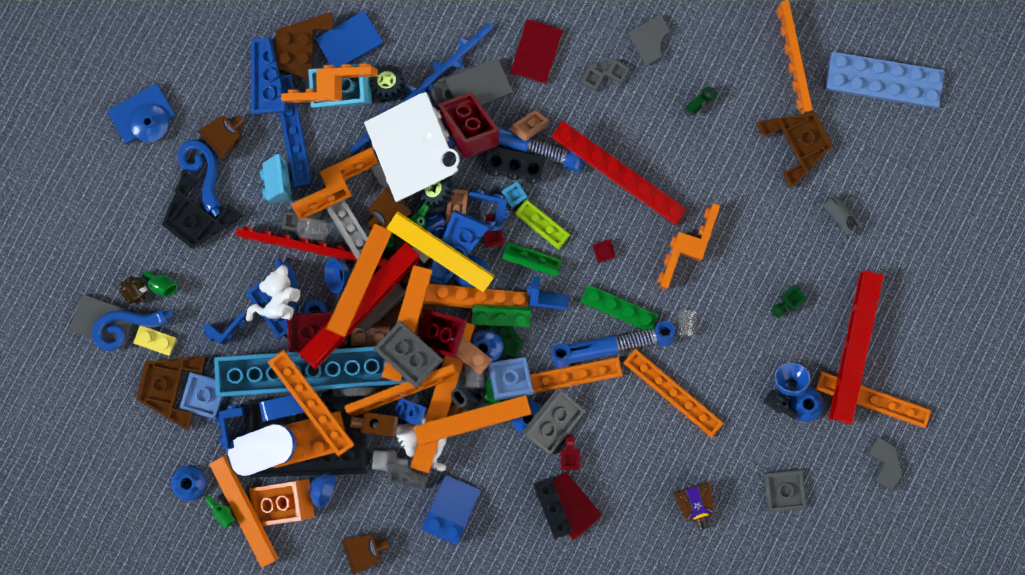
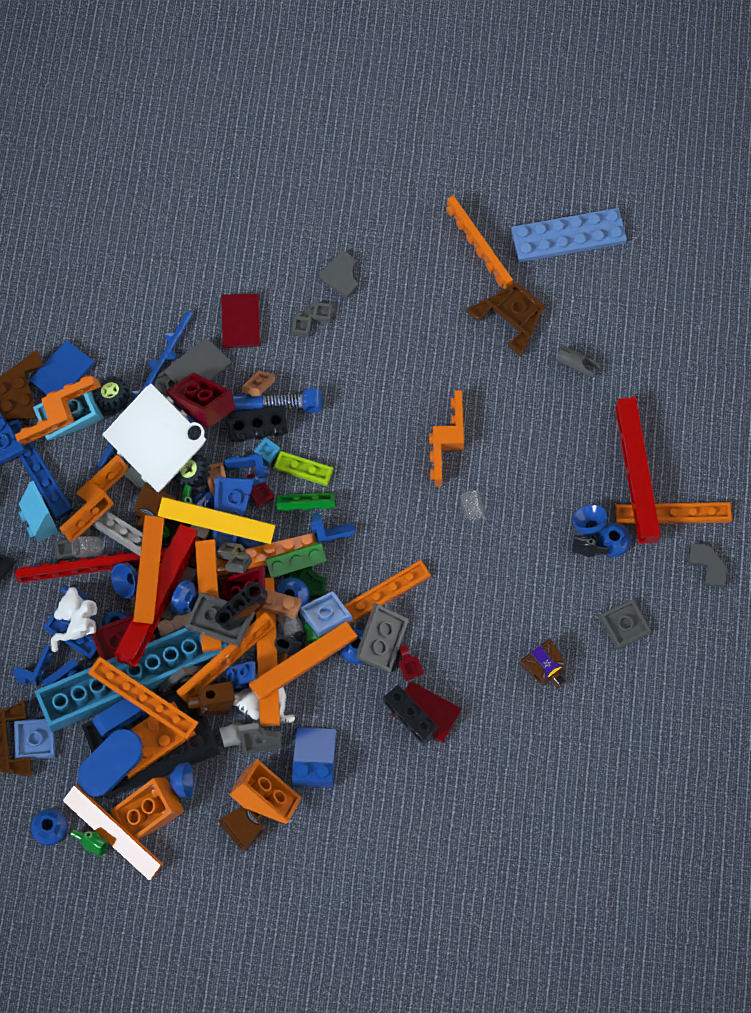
camera: 20 degrees left, 15 degrees down
(233, 411) = (67, 744): blue bracket -> none
(255, 344) = (65, 671): none -> blue plate
(384, 318) = (184, 598): none -> blue piece
(393, 531) = (265, 793): none -> orange slope
(421, 353) = (231, 607): none -> black beam
(448, 299) = (235, 553): none -> dark grey tile
(604, 251) = (370, 471): dark red plate -> none
(611, 345) = (370, 573): blue piece -> none
(618, 173) = (357, 396): red plate -> none
(619, 308) = (404, 517): green plate -> none
(673, 393) = (485, 574): orange tile -> none
(695, 106) = (405, 314): dark green plate -> none
(792, 299) = (560, 450): dark green plate -> none

